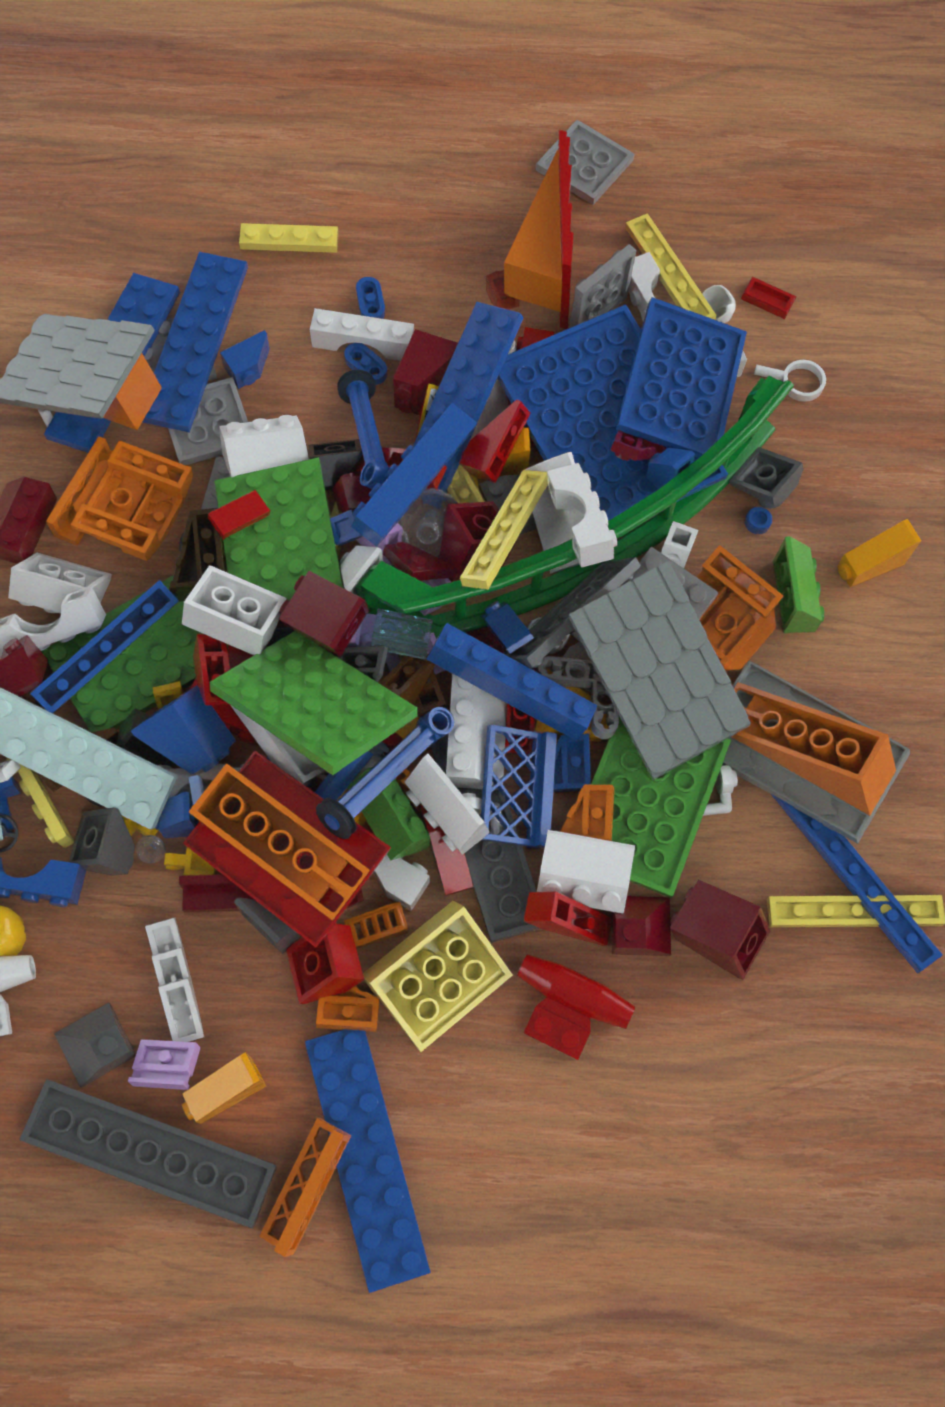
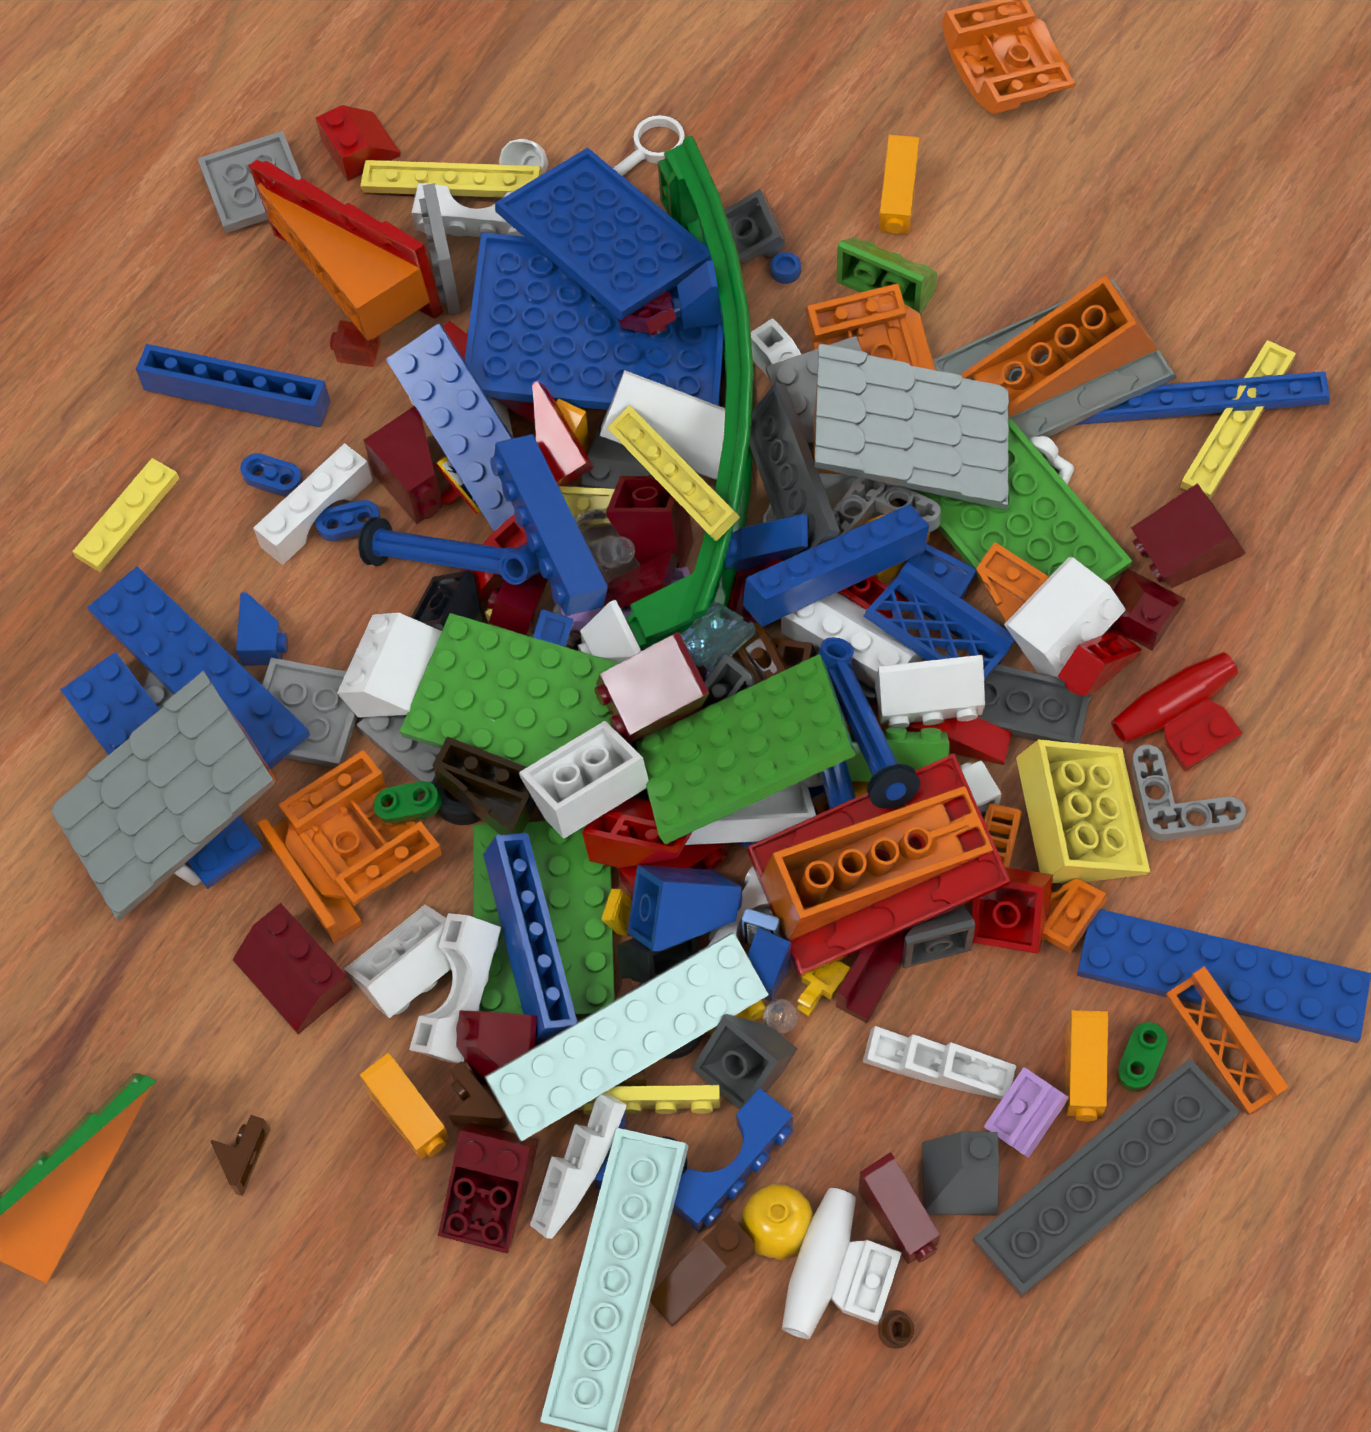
camera: 50 degrees left, 5 degrees down
(37, 1013) = (898, 1209): none -> slope
(170, 516) = (405, 803): none -> green plate
(239, 514) = (472, 718): red tile -> none
(262, 1127) = (1142, 1055): none -> green plate
(418, 238) = (233, 385): none -> blue brick
(482, 1034) = (1167, 809): none -> light grey beam
(590, 537) = (673, 390): white arch -> none
(661, 197) = (354, 137): none -> red slope
(768, 297) = (542, 114): red tile -> none

